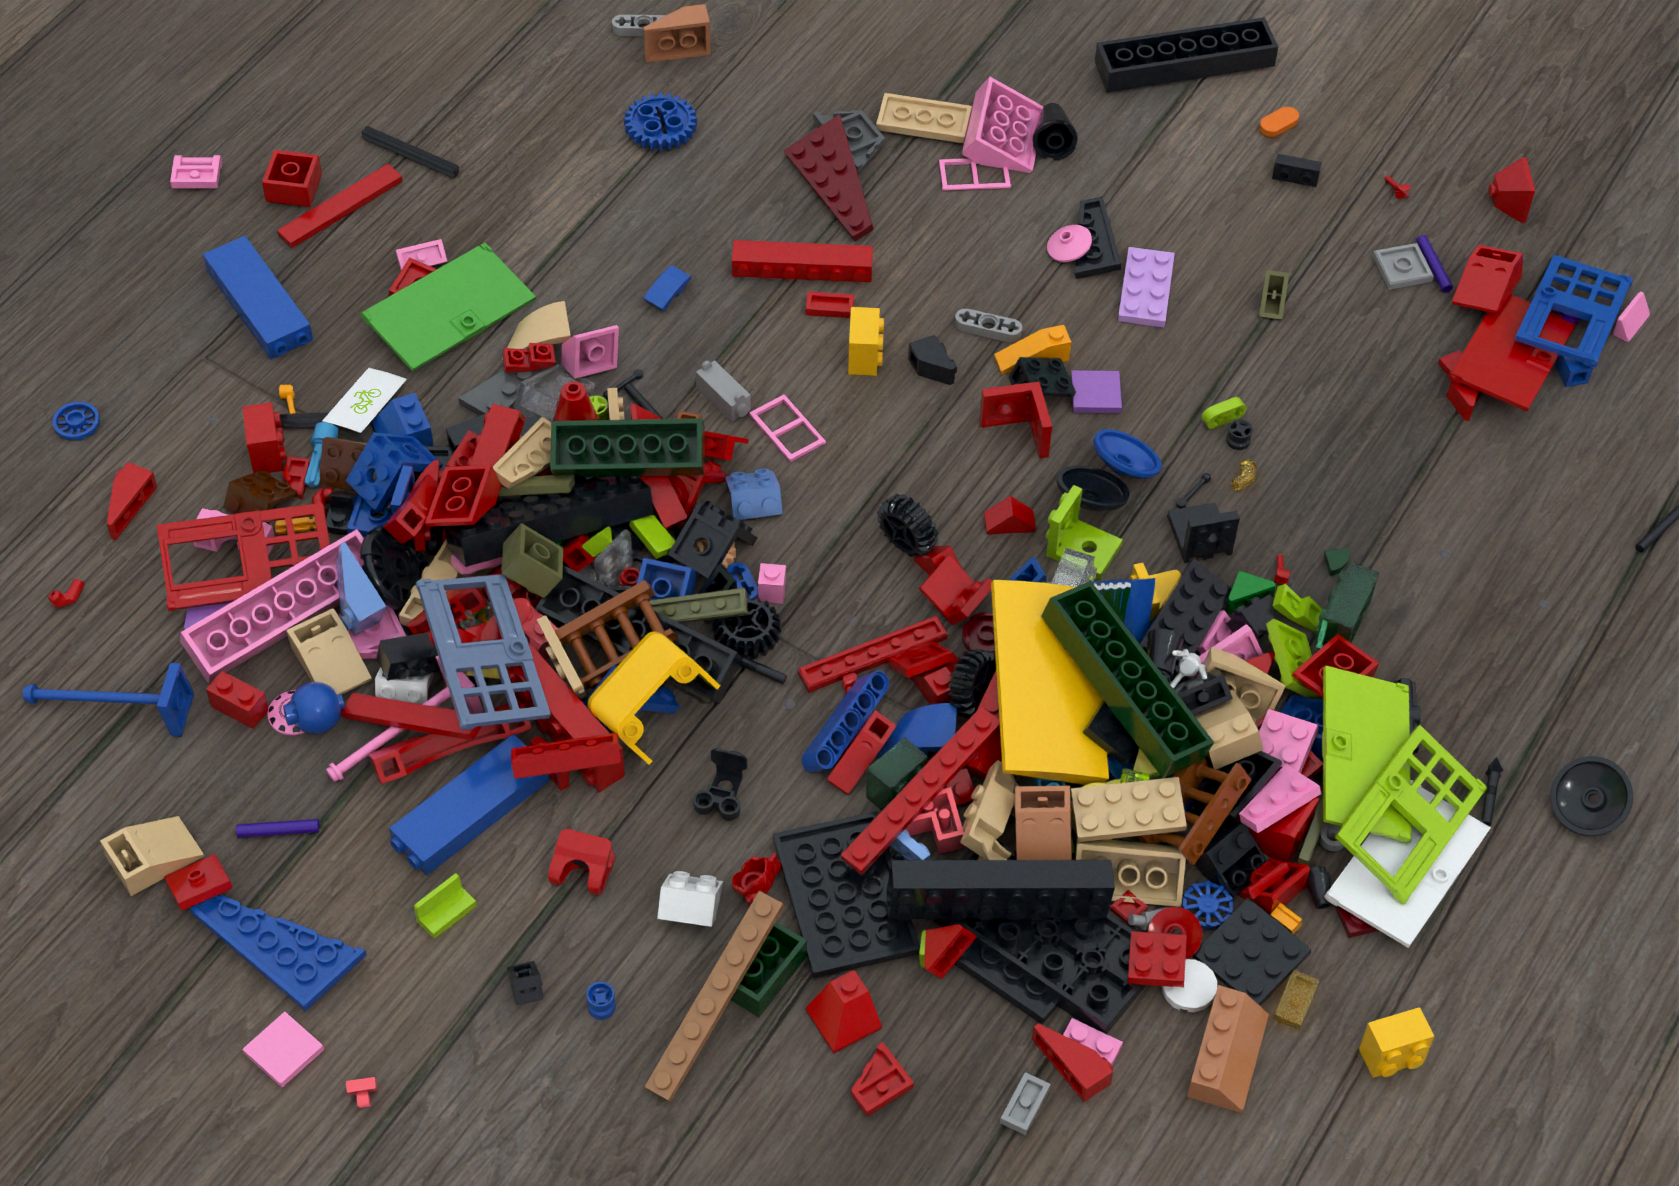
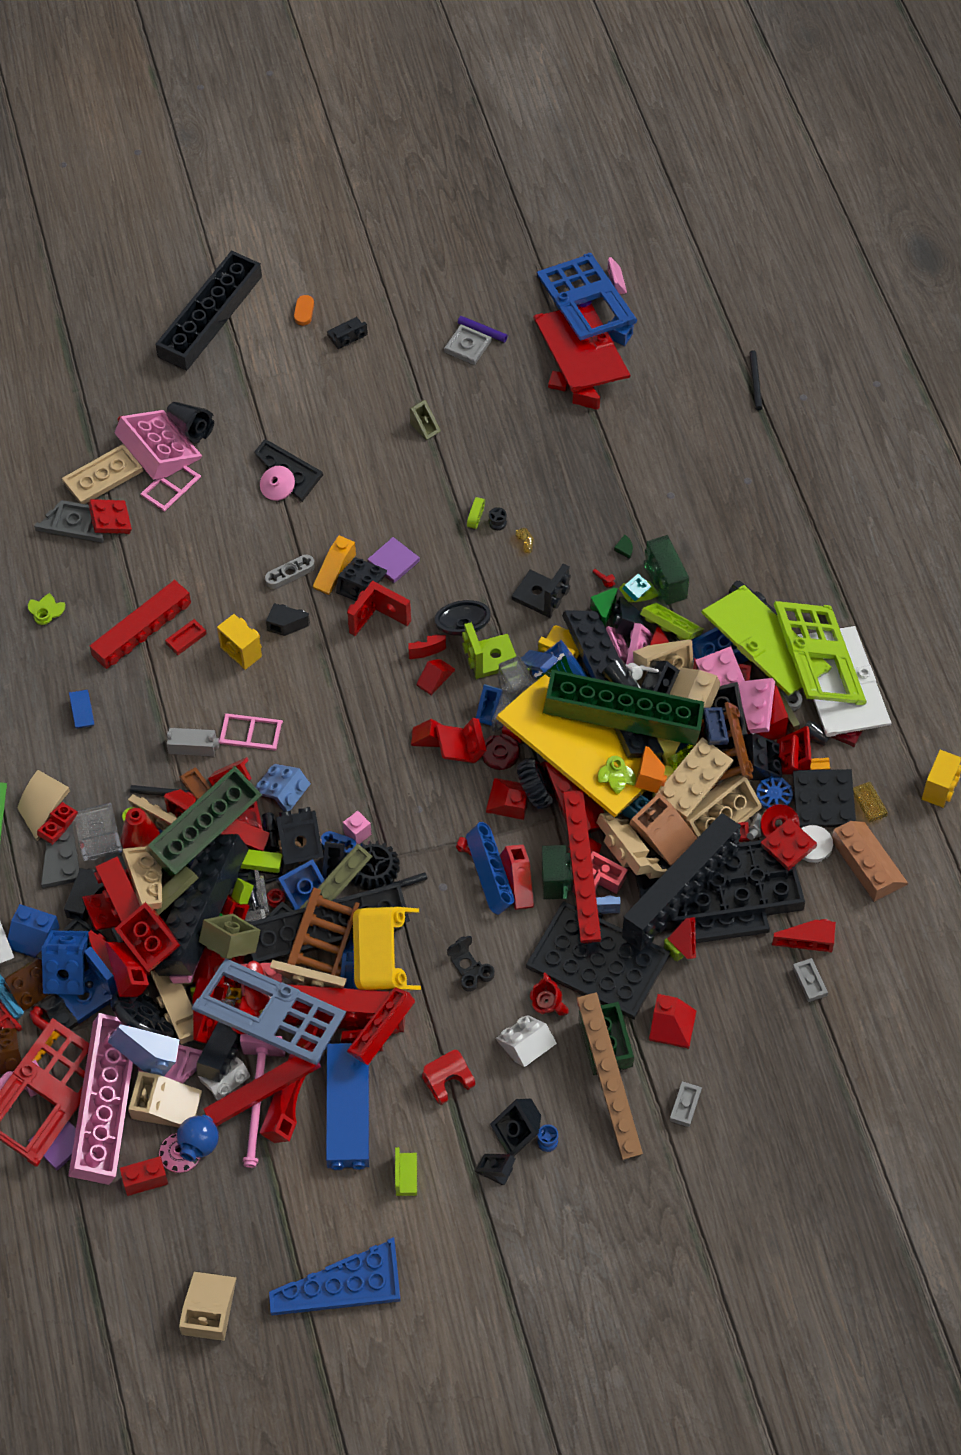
camera: 45 degrees left, 5 degrees up
(172, 702) = (109, 1212): blue tile -> none
(198, 882) = (255, 1294): red plate -> none
(277, 828) = (257, 1223): dark purple piece -> none
(283, 1049) = (415, 1332): bright pink tile -> none
(361, 1089) = (486, 1309): coral tile -> none
(589, 961) = (517, 1125): none -> black slope
(591, 352) = (89, 788): bright pink slope -> none
(638, 374) = (126, 776): black hinge -> none
(741, 187) = (45, 607): none -> lime plate
(763, 1096) = (685, 1104): none -> light grey plate
(830, 171) = (84, 552): dark red wing -> none
(870, 653) = (453, 818): red tile -> none
(881, 1082) = (730, 1038): red wing -> none
(886, 154) = (109, 516): none -> red plate
(907, 525) = (393, 728): black gear -> none
(920, 659) = (487, 797): red plate -> none
(924, 727) = (536, 830): blue slope -> none
(1033, 490) = (434, 645): none -> red slope
(1046, 736) = (616, 776): none -> lime plate
(1084, 761) = (650, 772): none -> orange slope
(1100, 1042) = (801, 916): bright pink plate -> none
(1105, 576) = (539, 661): none -> blue tile
(1126, 454) = (457, 582): blue dish -> none
(1146, 287) = (347, 473): lavender plate -> none
(1181, 502) = (511, 585): black hinge -> none
(1203, 777) = (715, 726): none -> dark blue plate
(1291, 596) = (636, 587): none -> bracket
(1337, 654) = (693, 601): red slope -> none
(1399, 190) = (416, 299): red hand -> none
(1488, 278) = (526, 315): red slope -> none
(1493, 772) = (825, 594): black piece -> none
(1513, 190) = (480, 249): red slope -> none
(1586, 778) = (899, 561): black dish -> none

